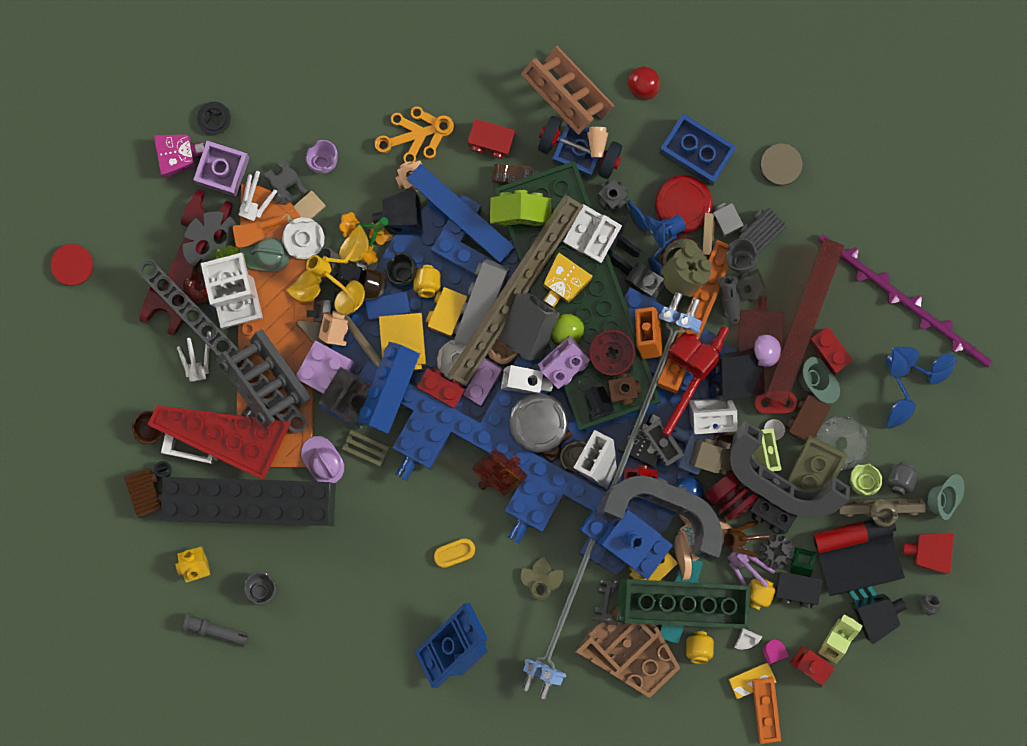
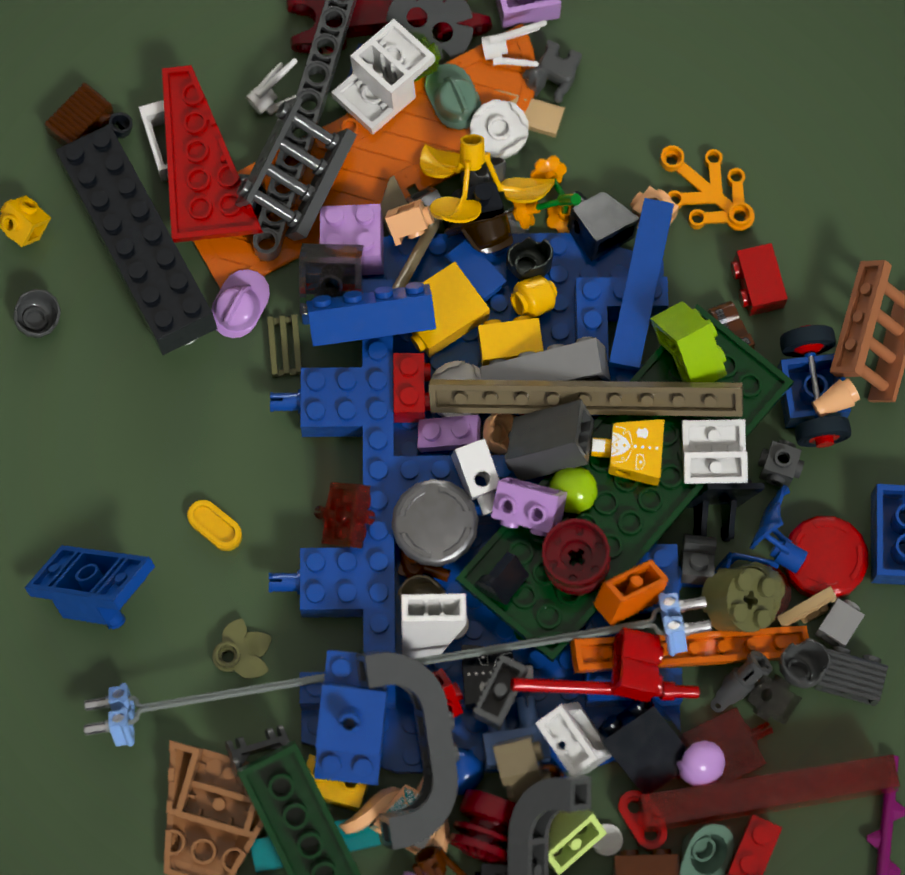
camera: 55 degrees right, 10 degrees down
(142, 432) = (151, 75): reddish brown hair -> none
(195, 288) = (360, 32): clear red hair -> none
(252, 233) = (469, 66): orange piece -> none
(322, 157) = (611, 96): lavender hair -> none
(618, 395) = (538, 589): reddish brown brick -> none

